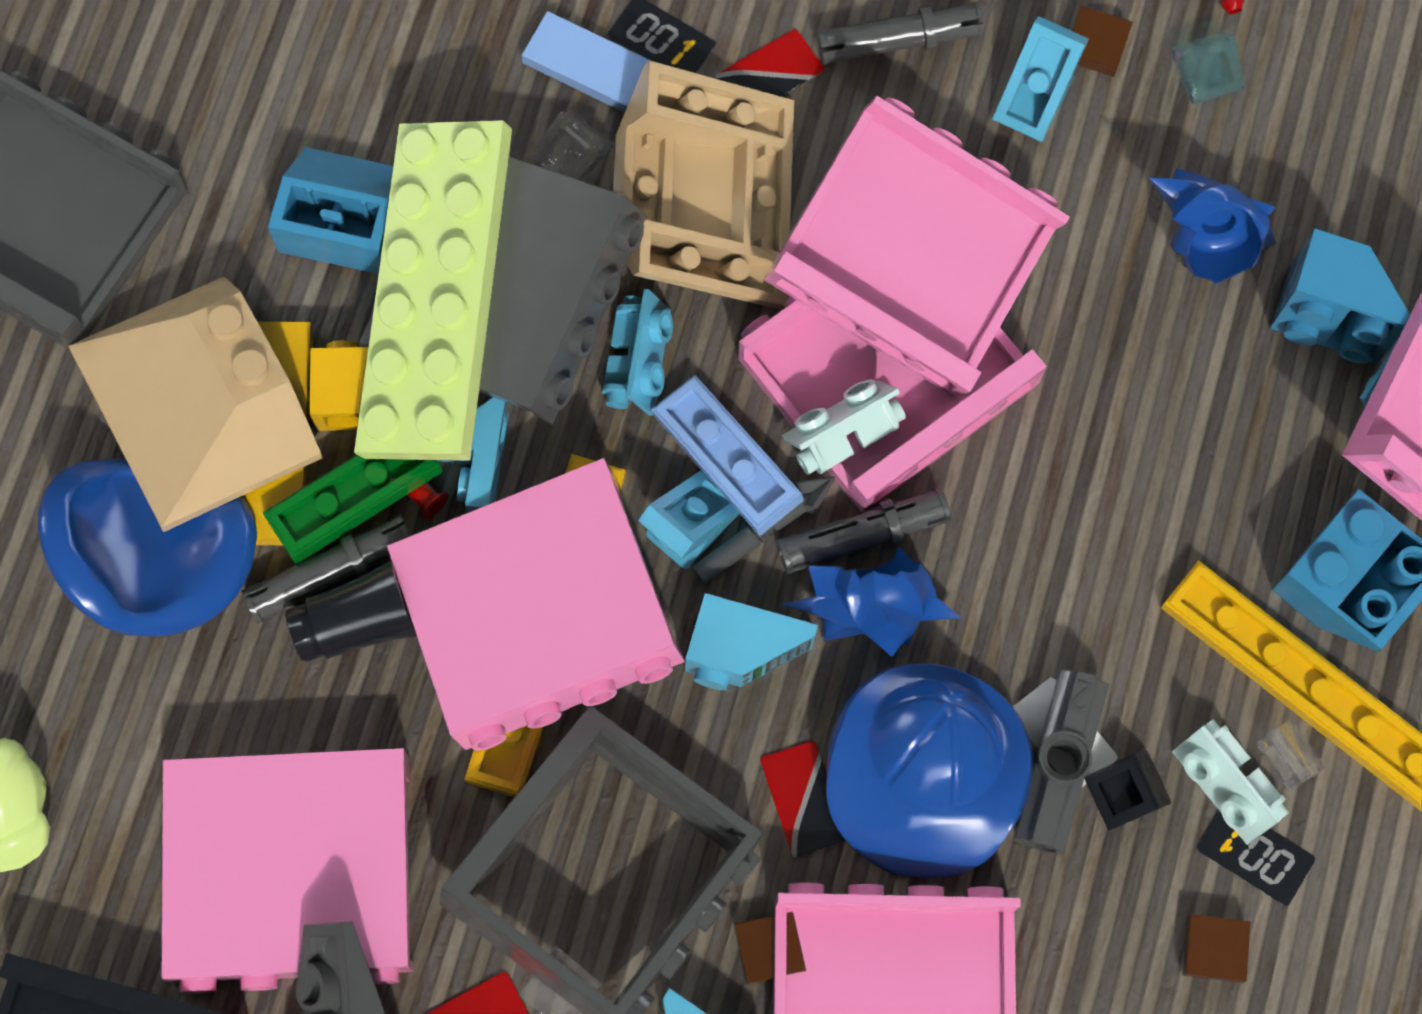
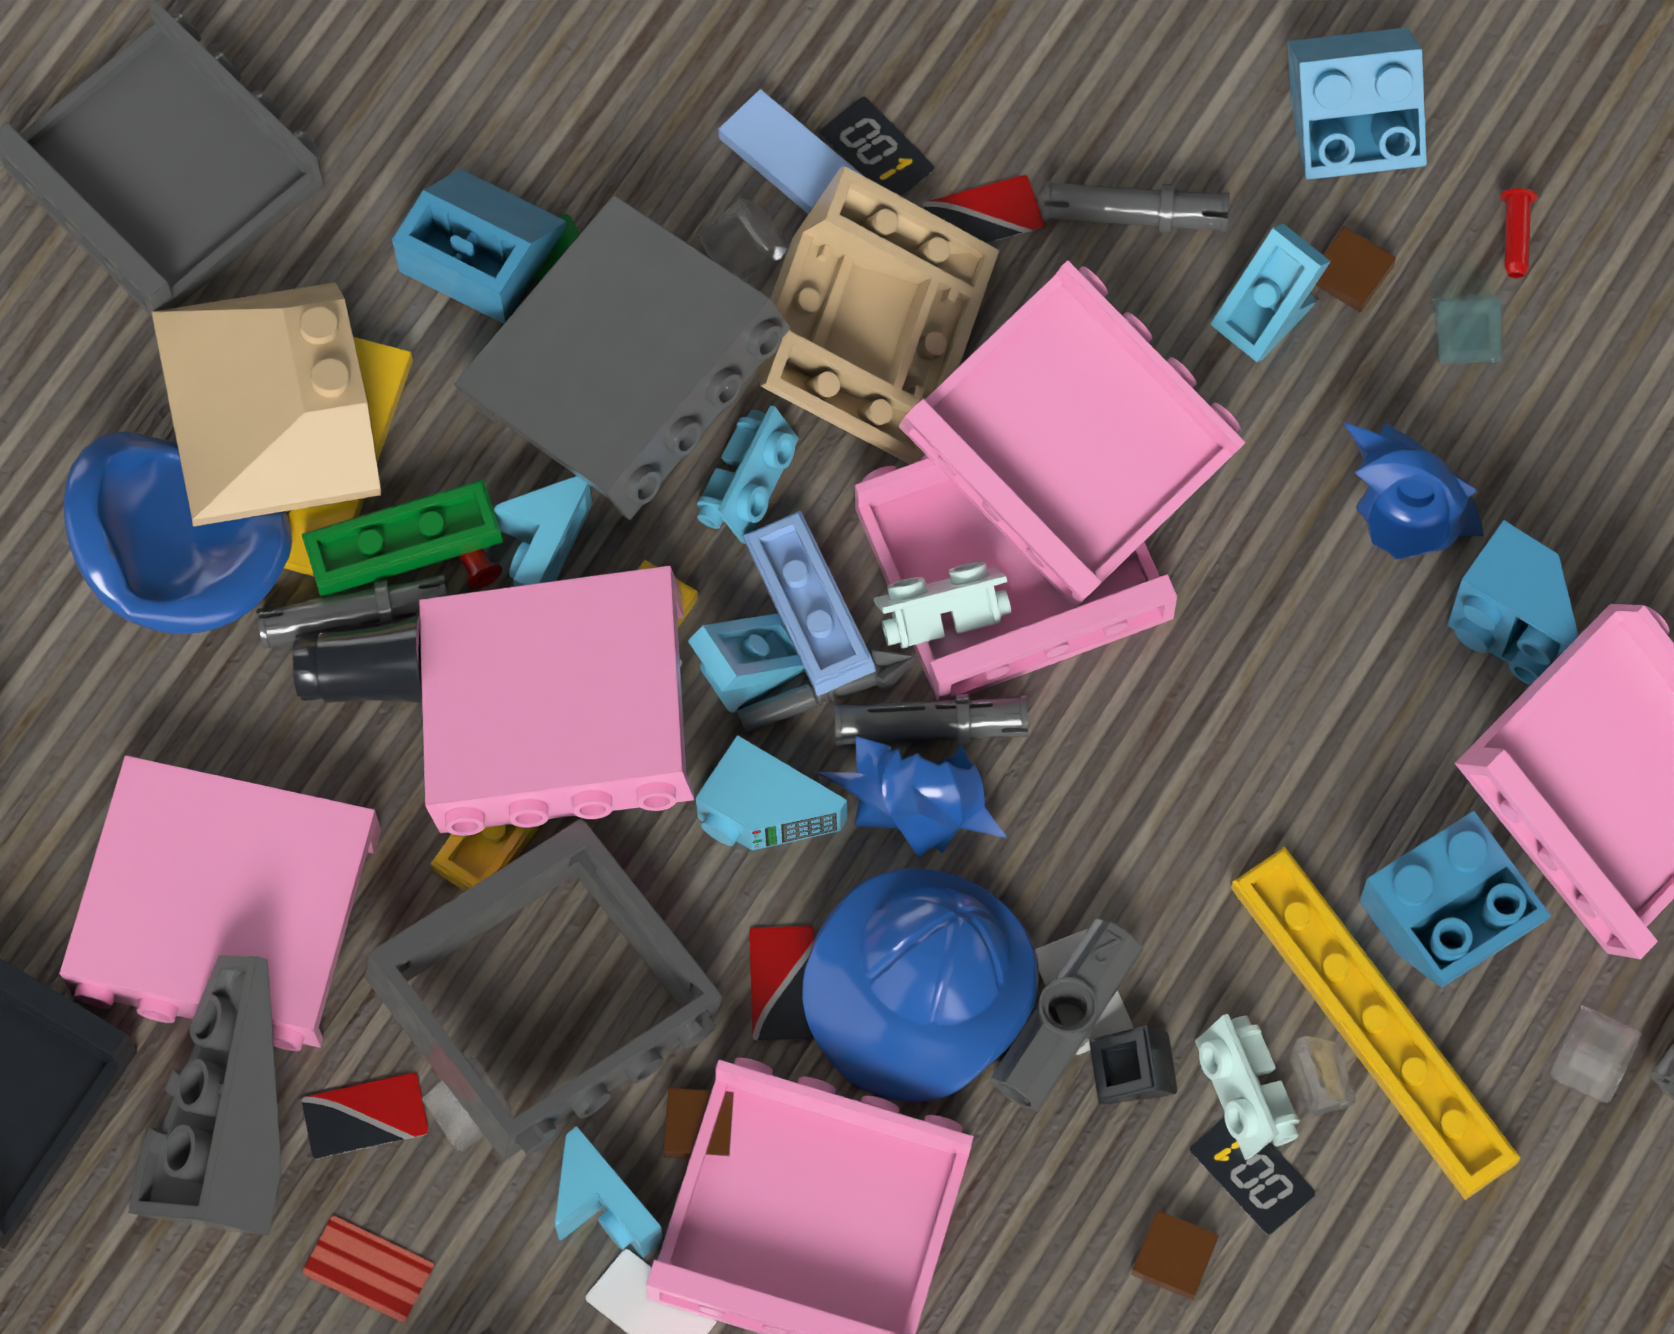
camera: 20 degrees right, 5 degrees down
(337, 385) = (423, 428): yellow brick -> none
(434, 291) = (544, 348): yellowish green plate -> none

